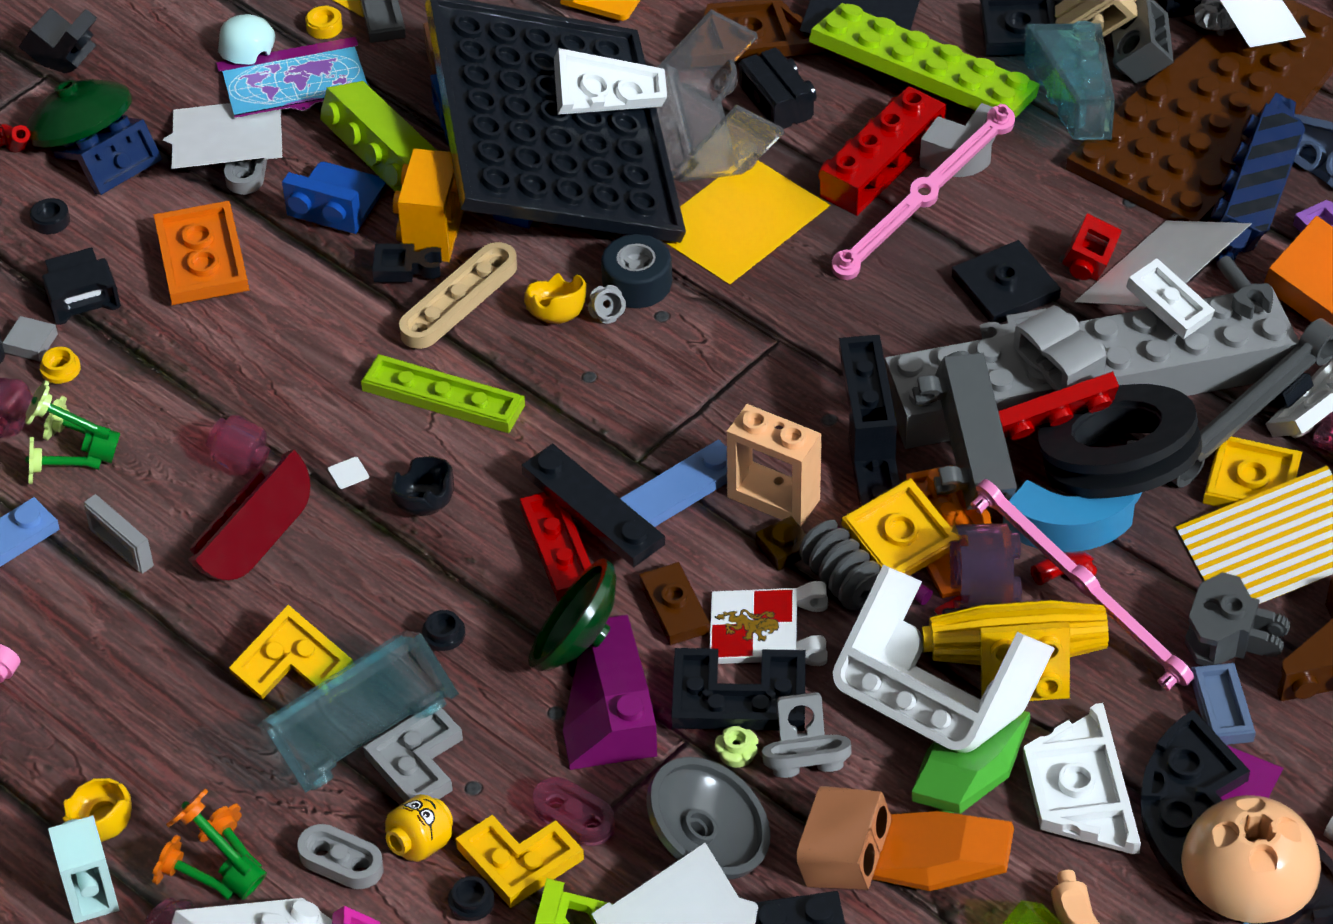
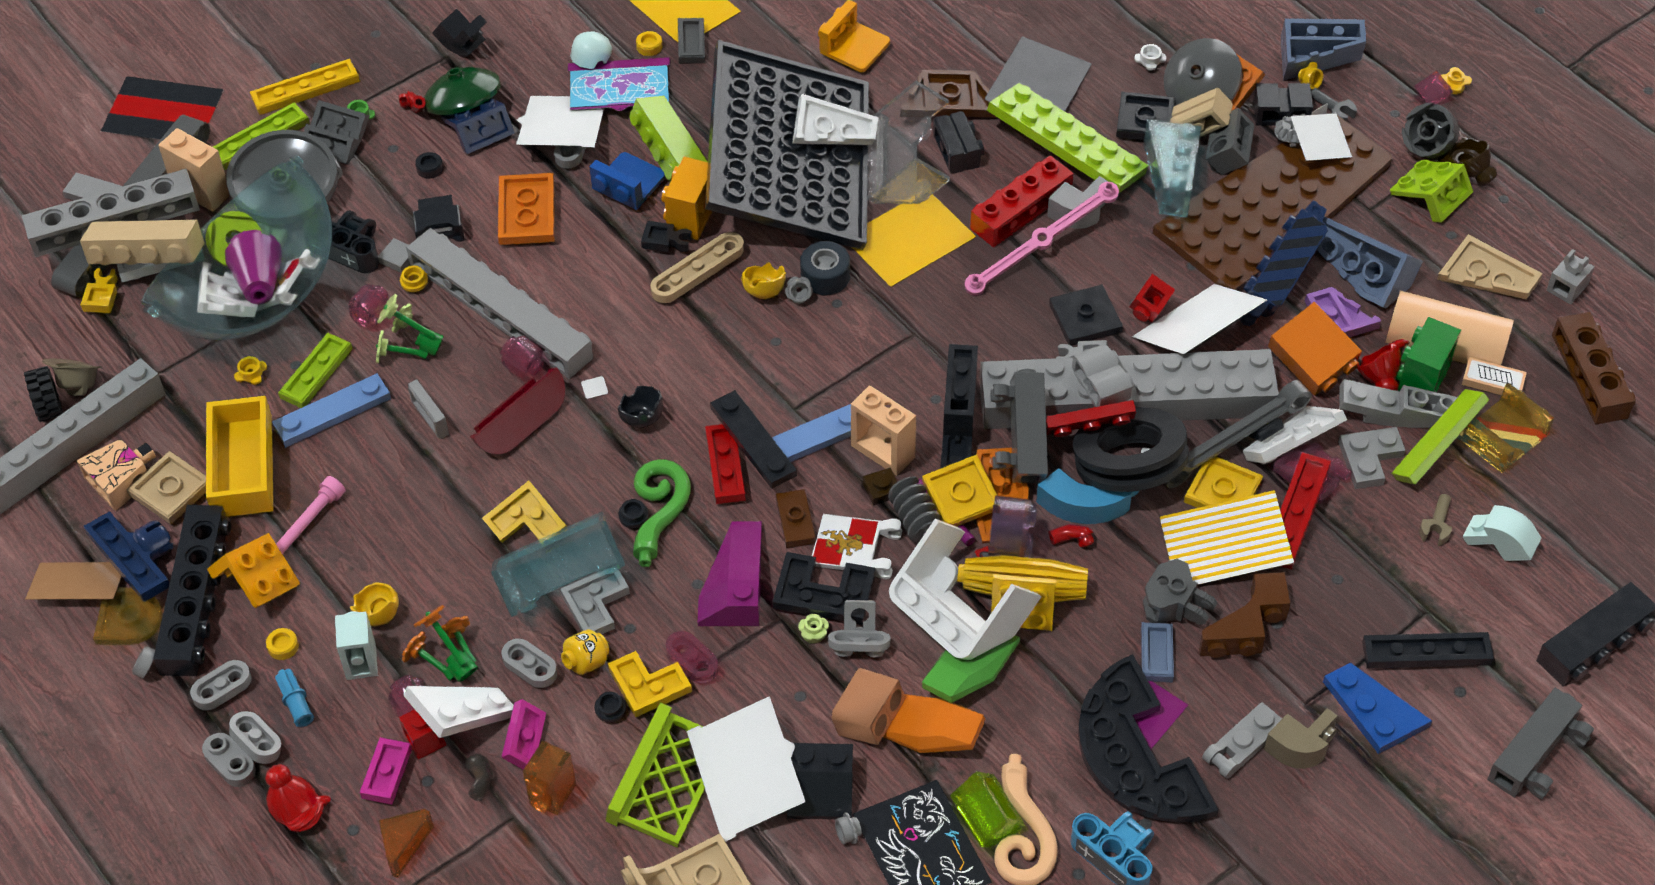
camera: 10 degrees right, 5 degrees up
(190, 377) = (500, 302): none -> light grey brick
(443, 393) = (671, 339): lime tile -> none
(471, 661) = (647, 537): none -> bright green plant
(576, 619) = (722, 522): dark green dish -> none
(707, 803) = (786, 668): dark grey dish -> none
(1081, 784) = (1043, 693): white wing -> none
(1085, 582) = (1026, 479): bright pink piece -> none
(1170, 298) = (1190, 350): white plate -> none
(1246, 291) = (1248, 351): dark grey bar -> none
(1251, 859) = (1139, 781): light nougat piece -> none

